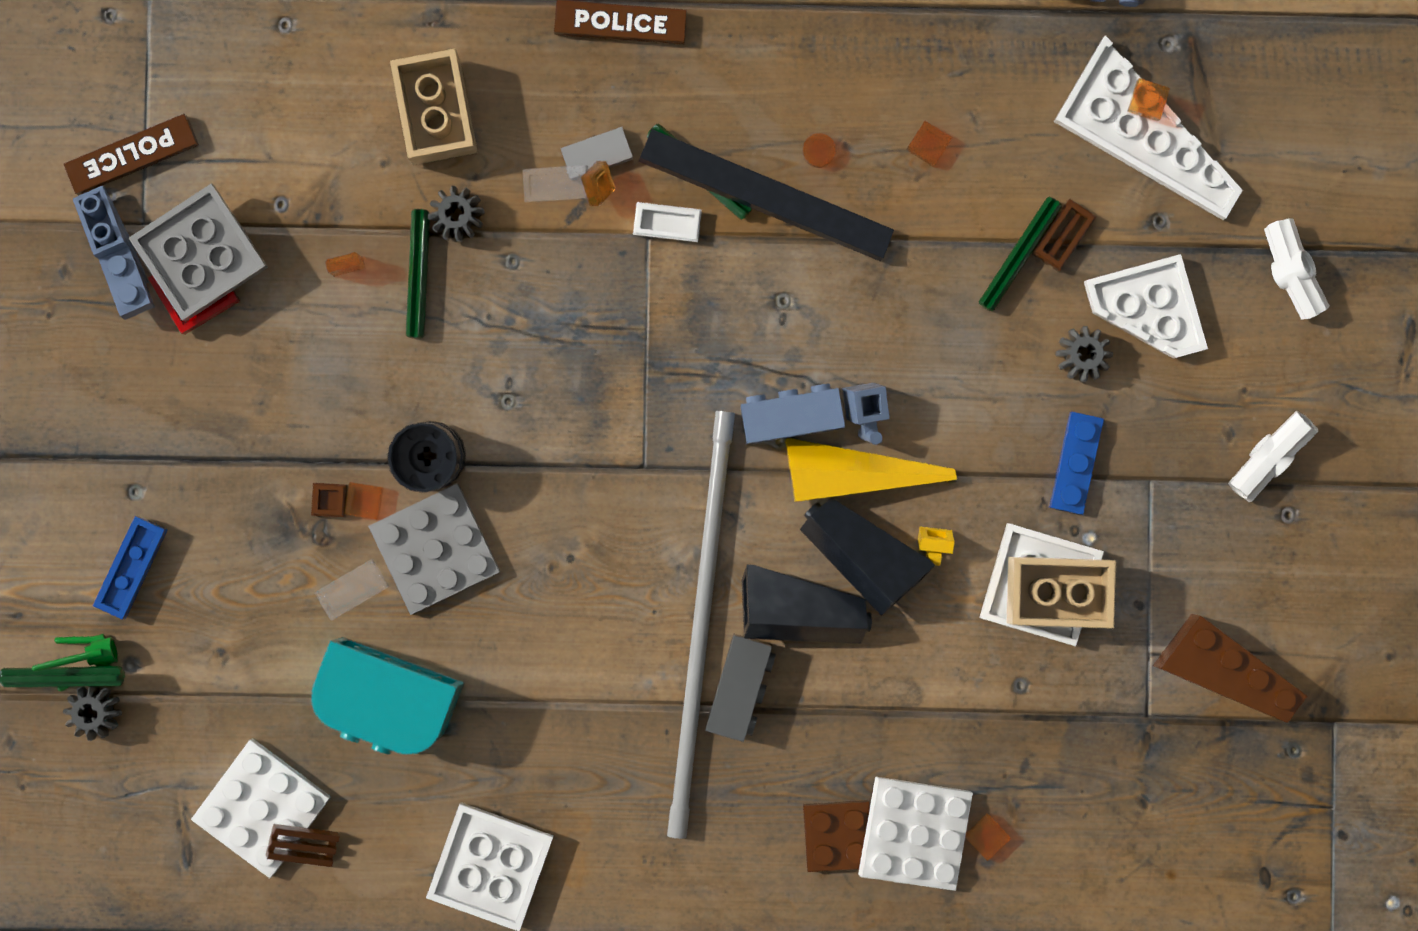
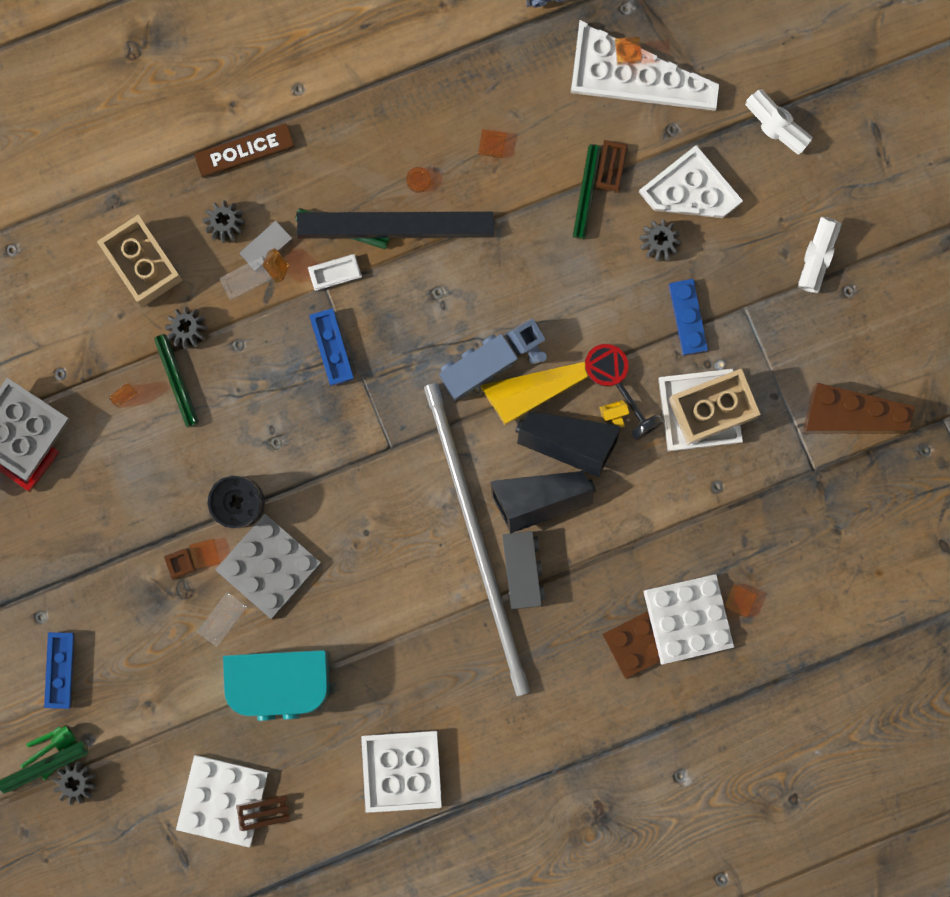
camera: 25 degrees left, 5 degrees down
(548, 109) = (216, 227): none -> dark grey gear
(624, 313) = (331, 347): none -> blue plate
(952, 483) = (608, 367): none -> black piece

